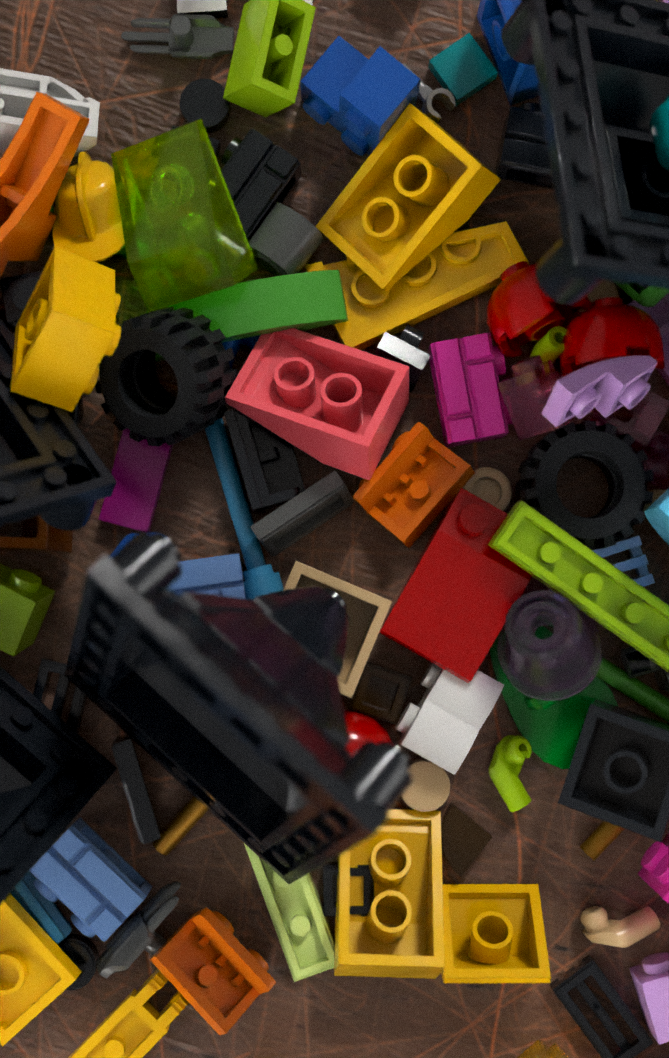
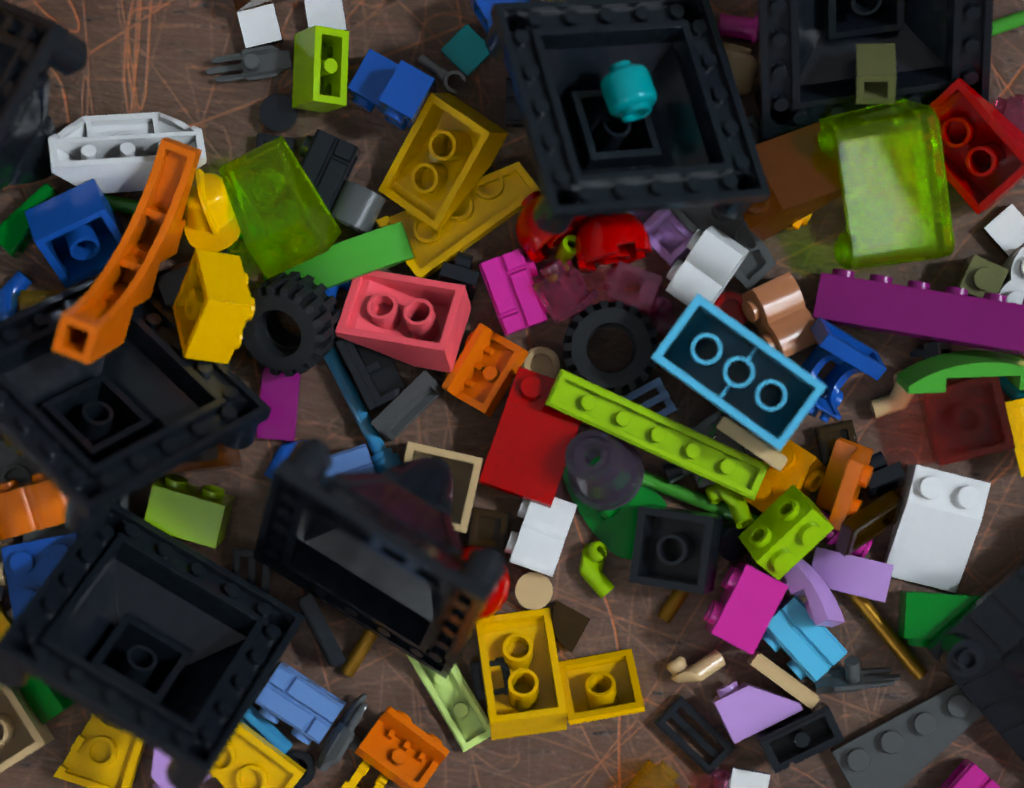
camera: 10 degrees left, 0 degrees up
(600, 386) = (606, 275): lavender slope -> none

